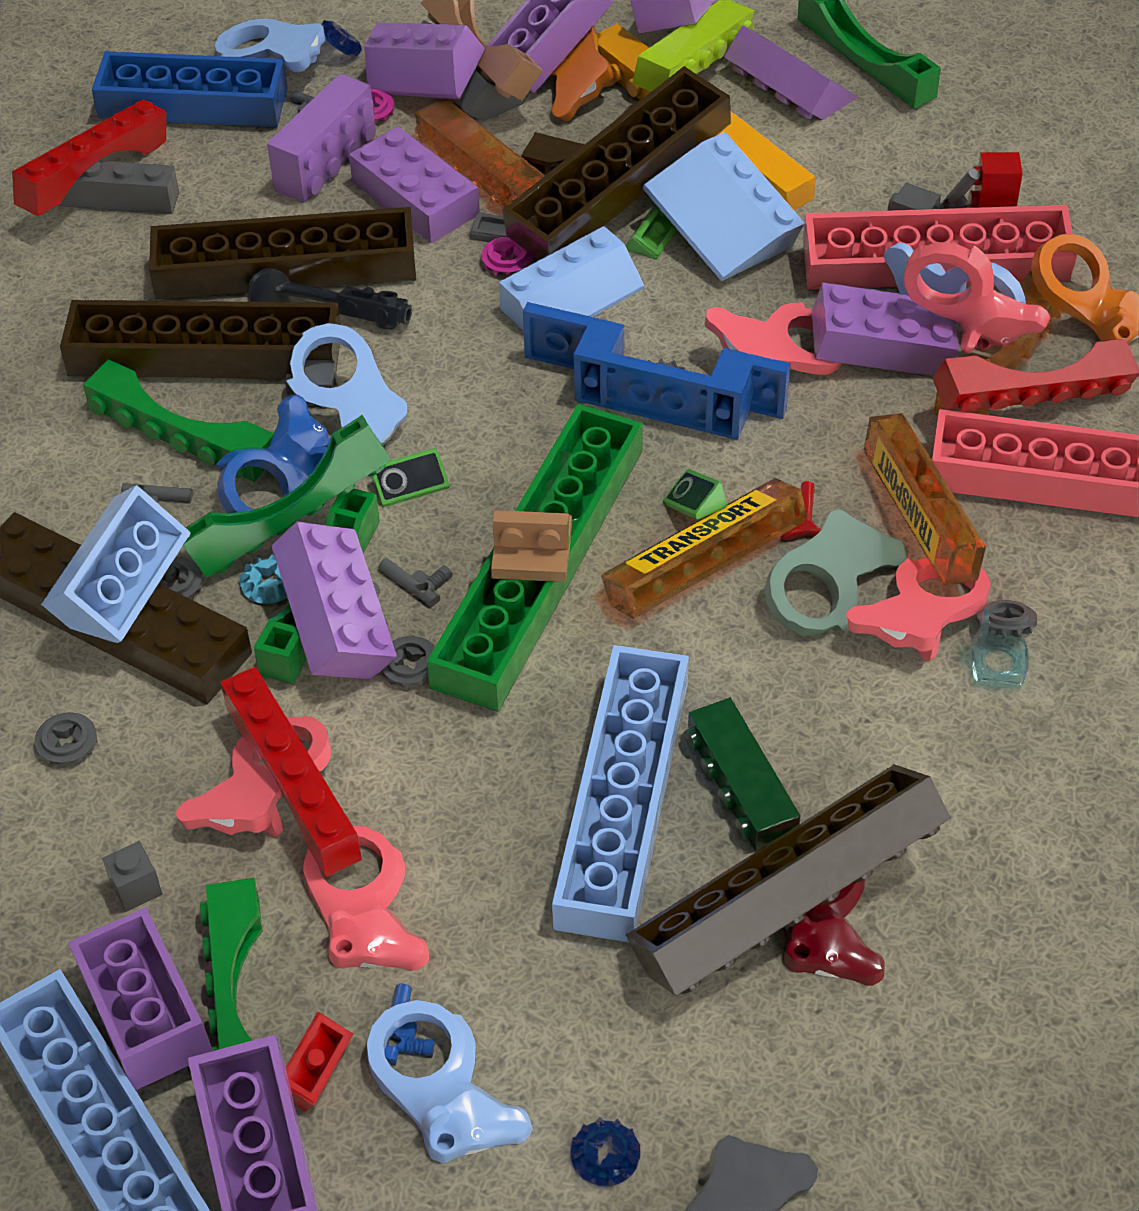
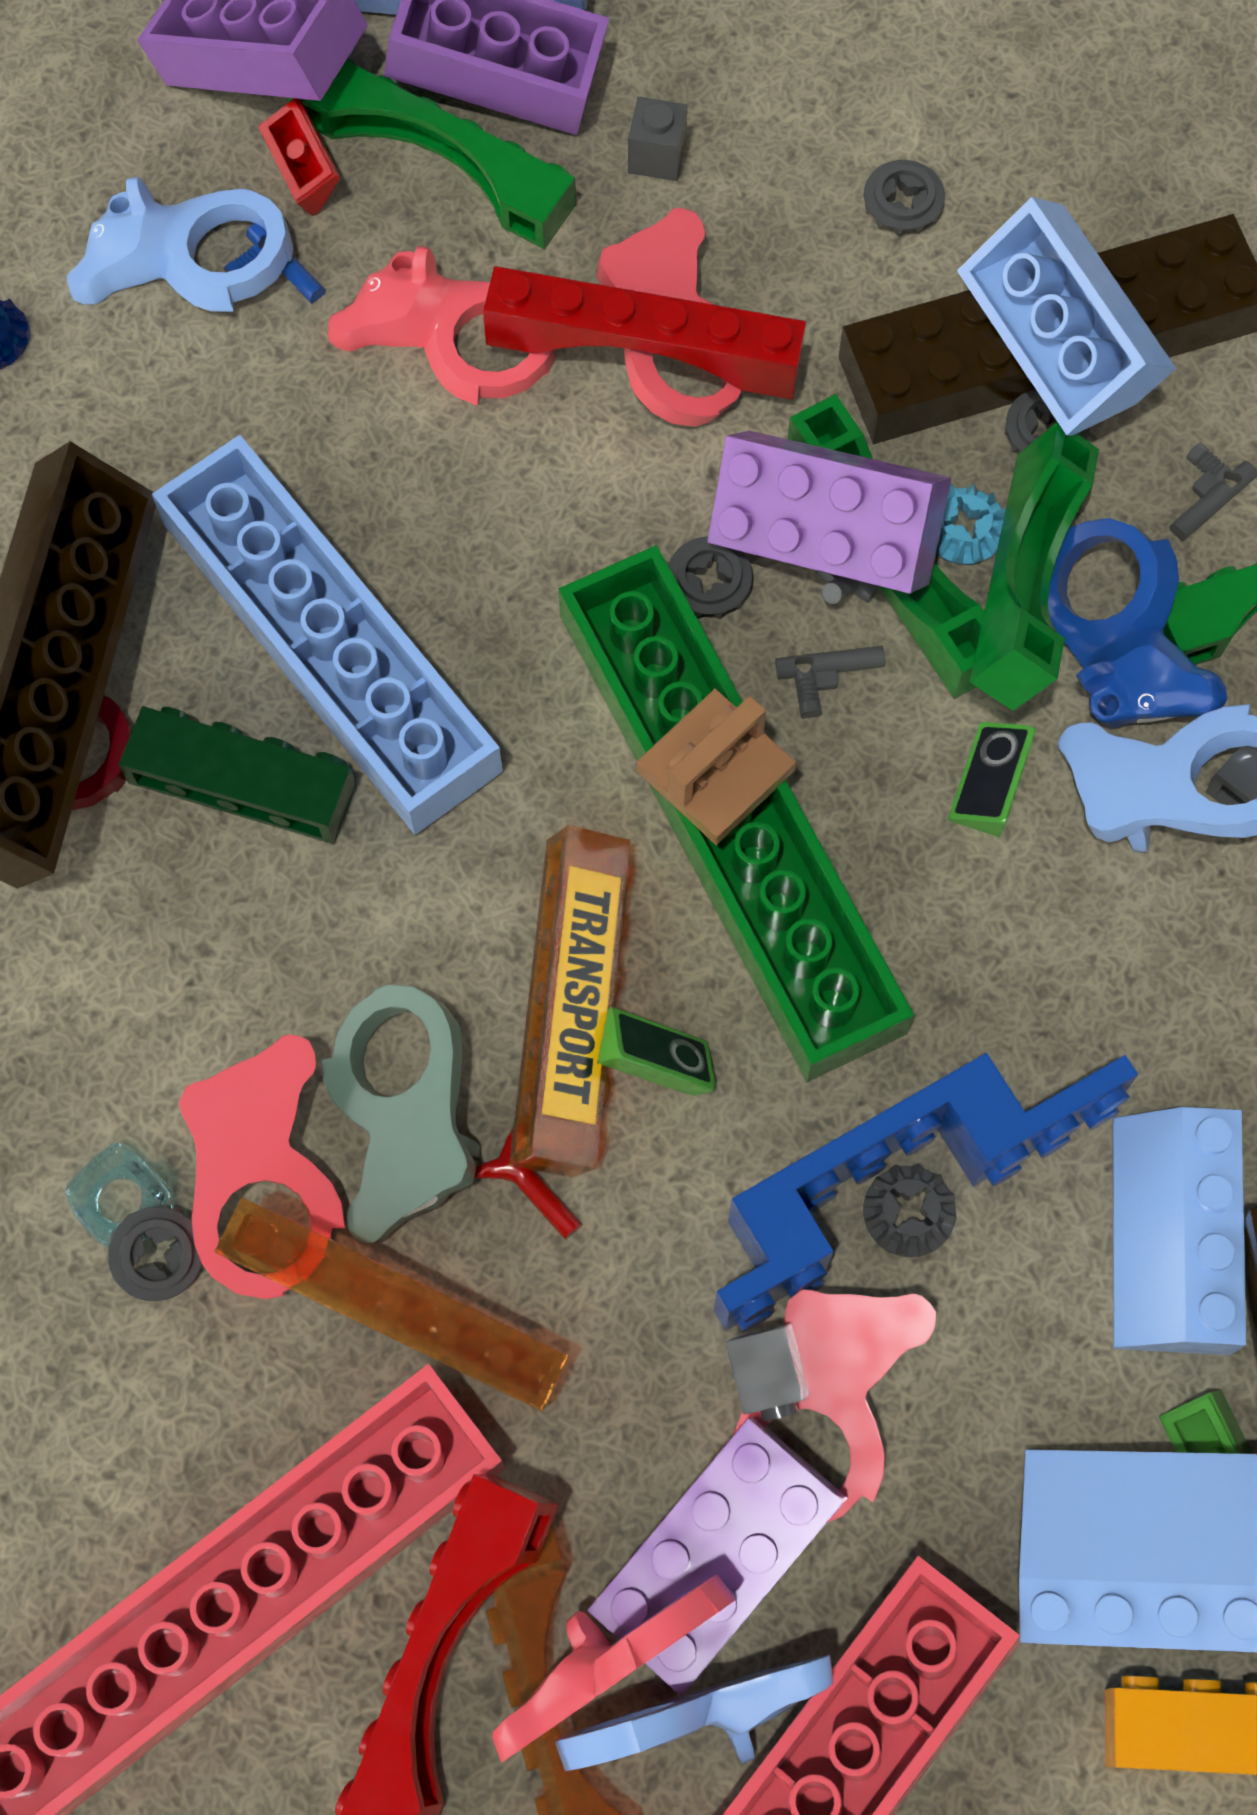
camera: 130 degrees right, 20 degrees up
(797, 346) = (768, 1372): none -> brick

